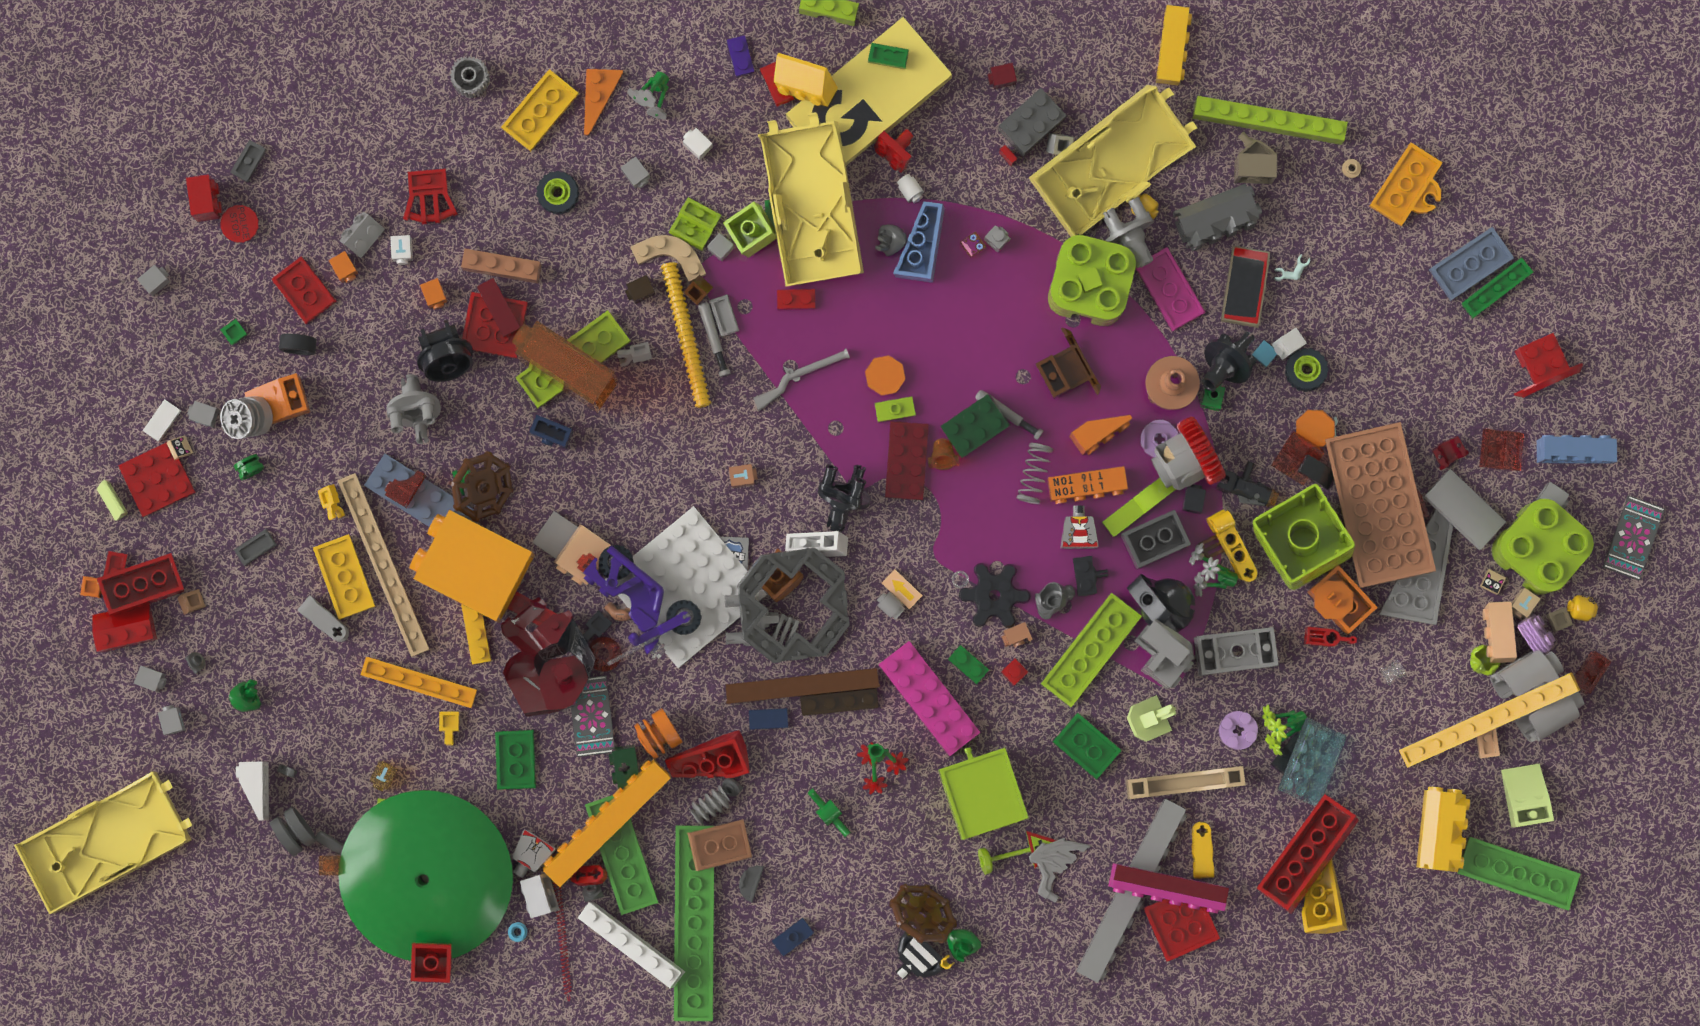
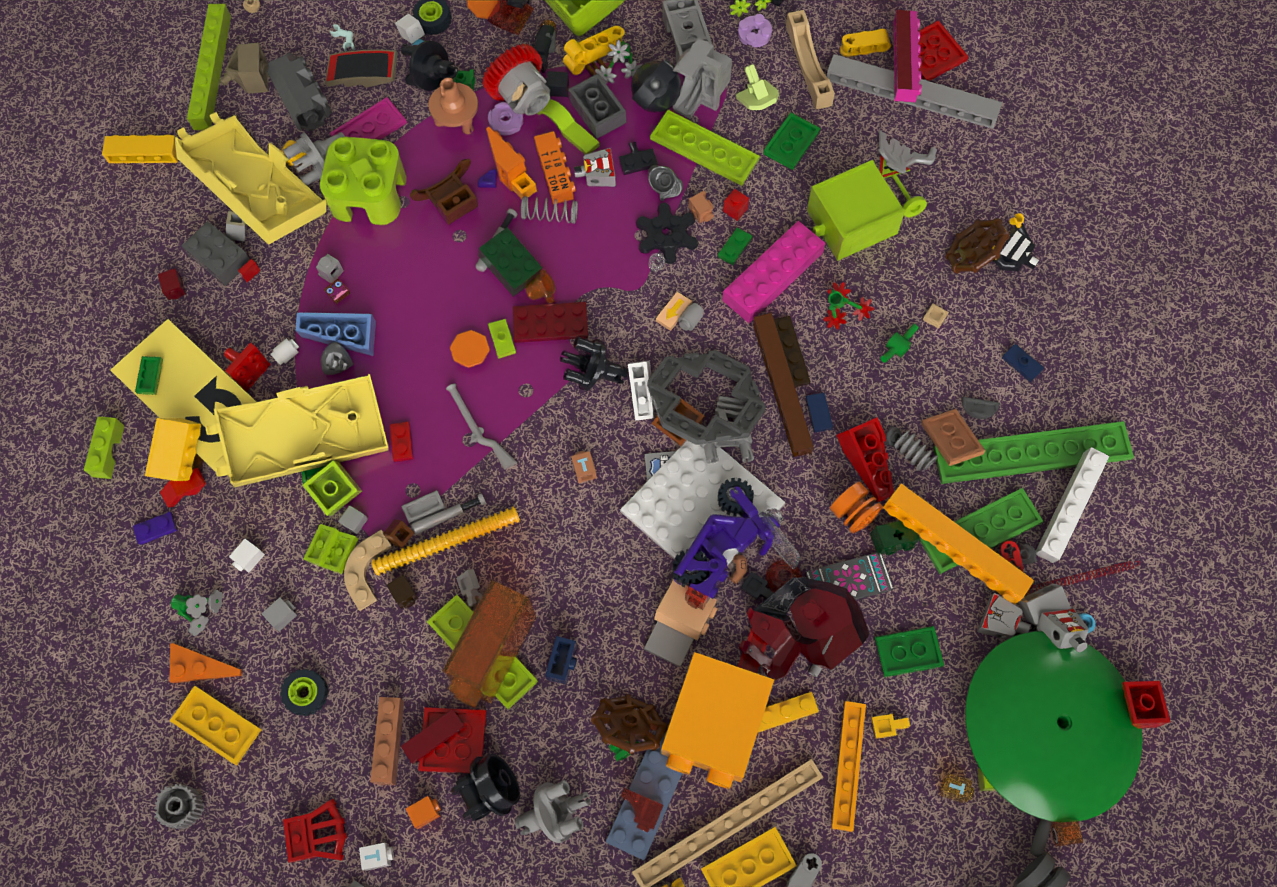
camera: 90 degrees left, 15 degrees down
(510, 905) = (1064, 629): none -> light grey torso
(858, 859) = (935, 316): none -> tan tile
(963, 943) = (993, 210): green piece -> none
(1070, 443) = (523, 186): none -> light orange plate
(1085, 413) = (488, 180): none -> dark purple tile

